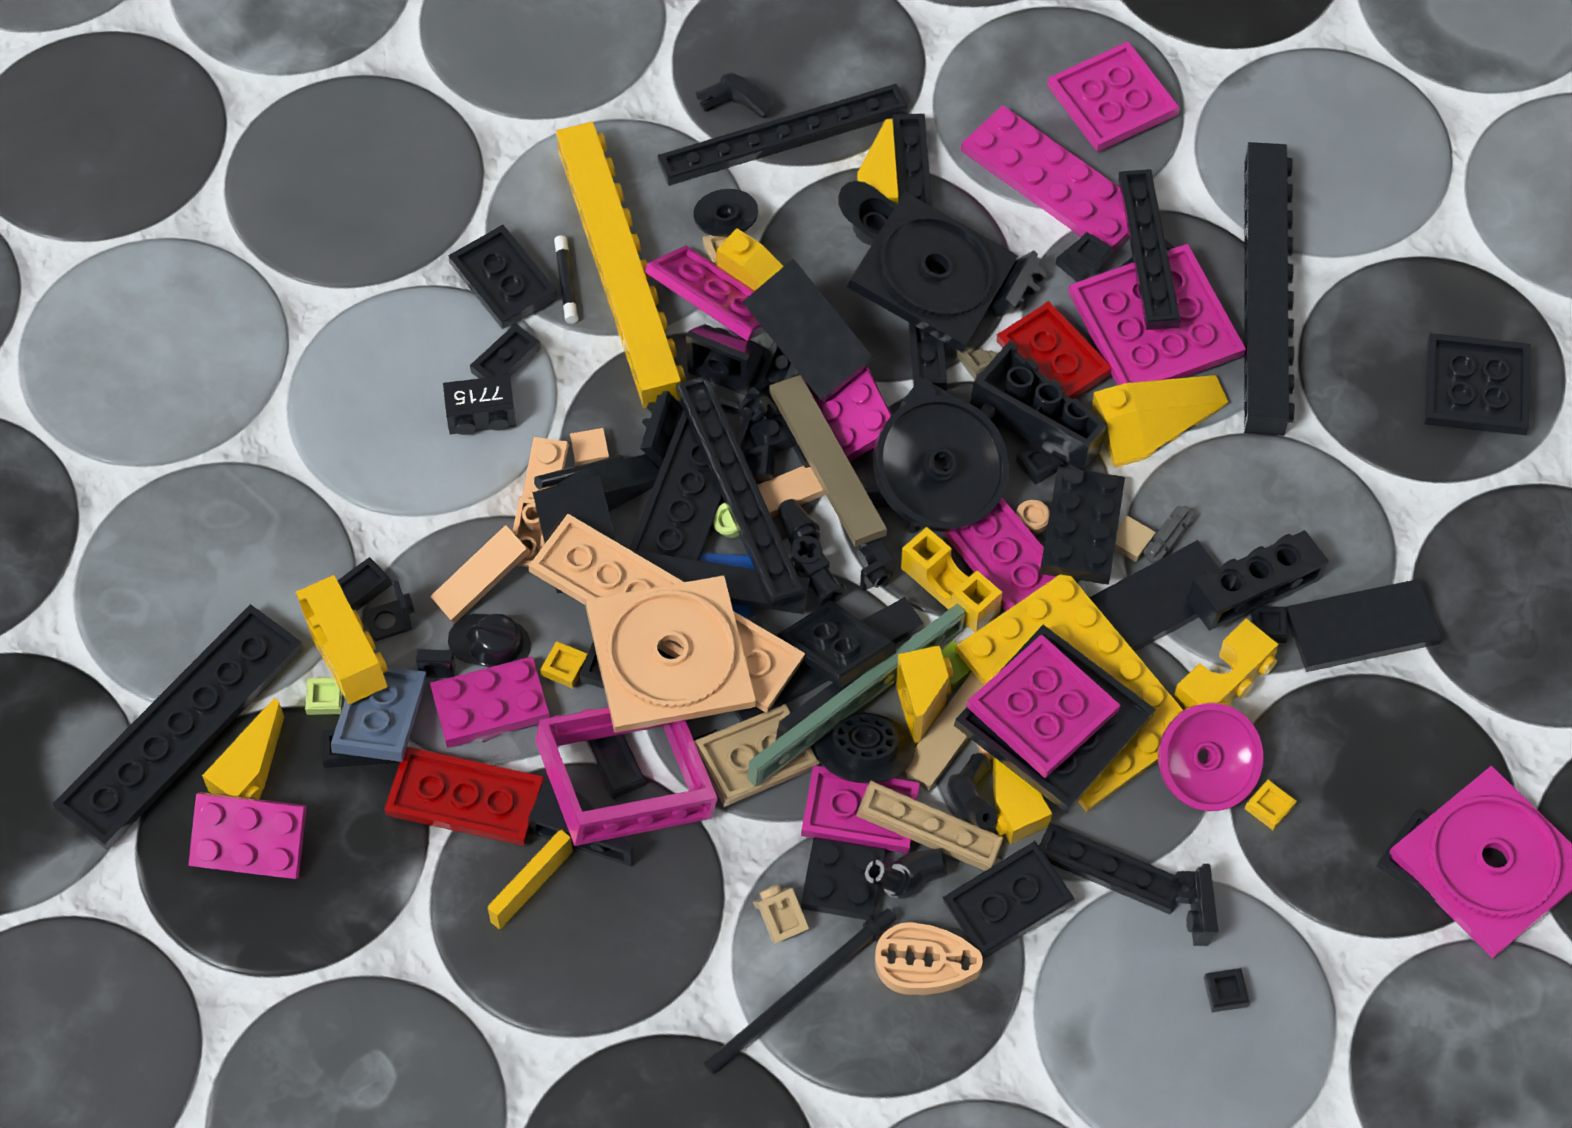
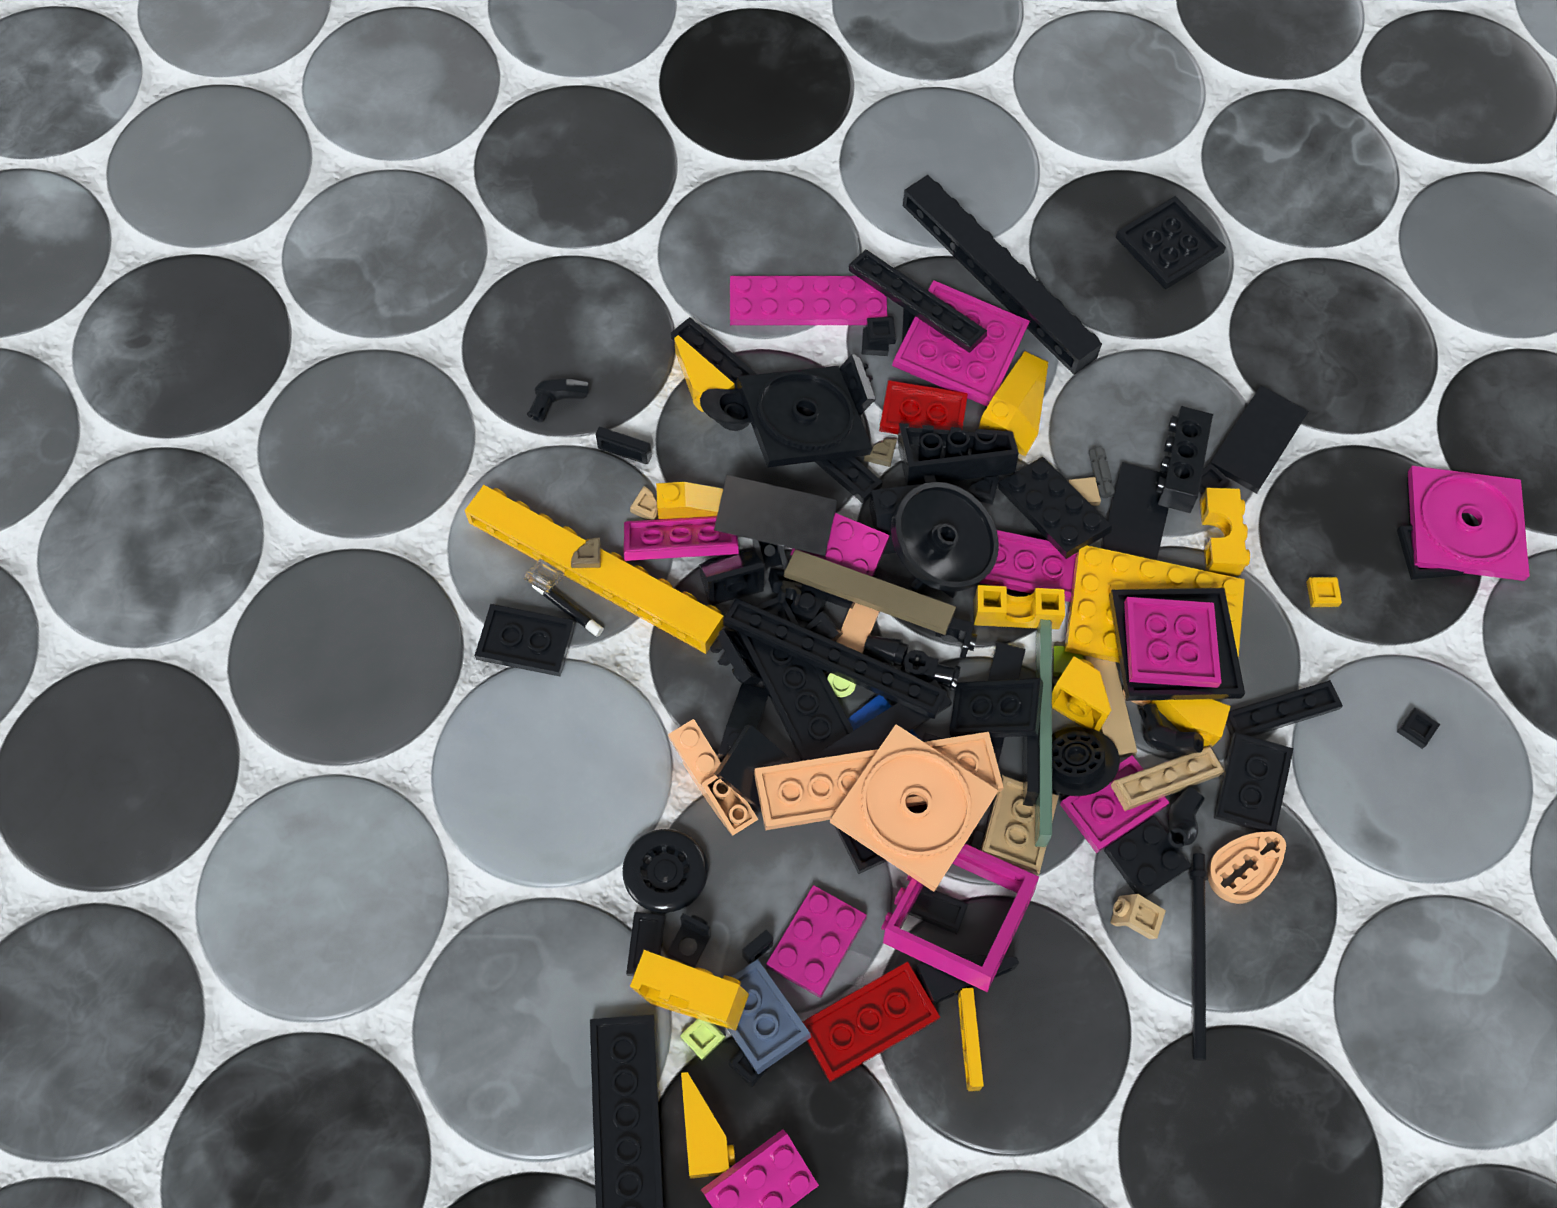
camera: 45 degrees left, 5 degrees up
(426, 555) = (665, 870): none -> black wheel
(479, 405) = (602, 742): black brick -> none
(480, 574) = (725, 859): light nougat tile -> none
(488, 640) = (770, 899): black piece -> none
(506, 354) = (583, 694): black plate -> none
(552, 478) = (716, 738): black bar -> none
(563, 664) = (839, 872): yellow plate -> none
(570, 237) = (543, 576): none -> clear tile
(589, 446) = (701, 709): light nougat tile -> none
(617, 243) = (588, 555): none -> dark tan tile
(725, 211) = (631, 470): black dish -> none
(749, 179) = (623, 445): none -> black tile
(781, 134) = (608, 400): black tile -> none
(1034, 515) = (1015, 523): light nougat tile -> none
(1112, 96) = (789, 221): dark pink plate -> none
(1202, 917) = (1358, 687): black plate -> none
(1231, 762) = (1275, 591): dark pink dish -> none

